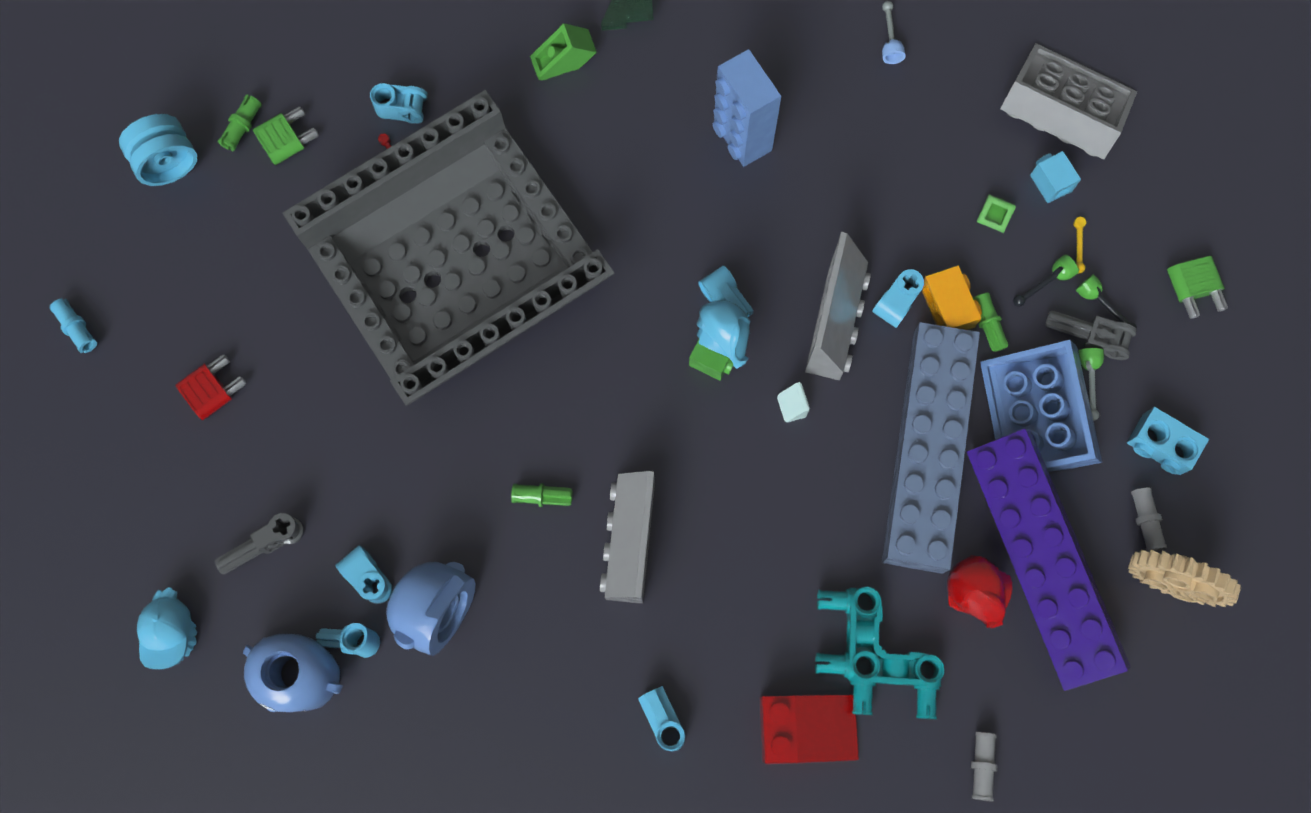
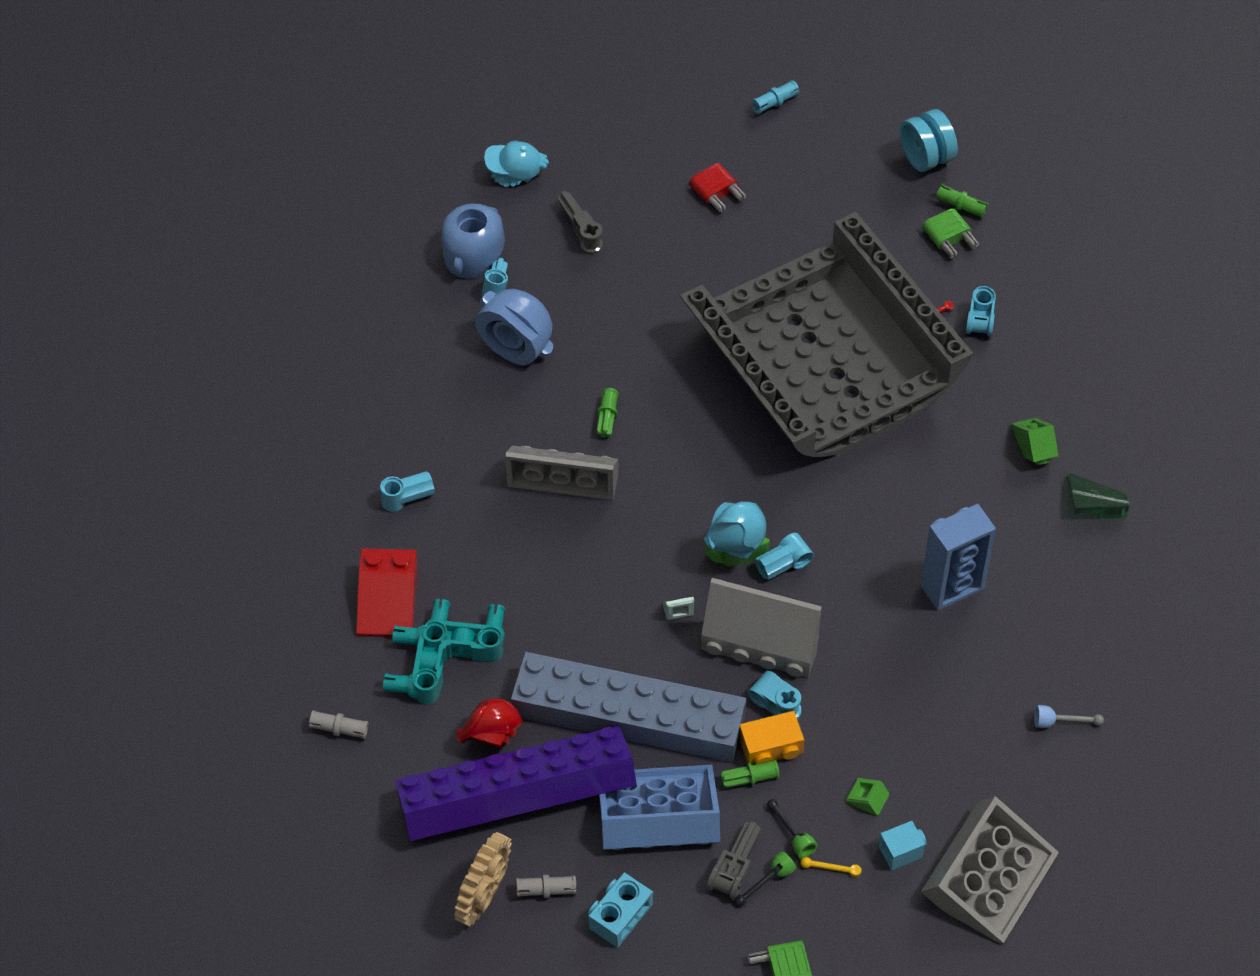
camera: 90 degrees right, 20 degrees down
(362, 572) = (550, 287): medium azure piece -> none
(1091, 360) = (706, 856): hinge -> none

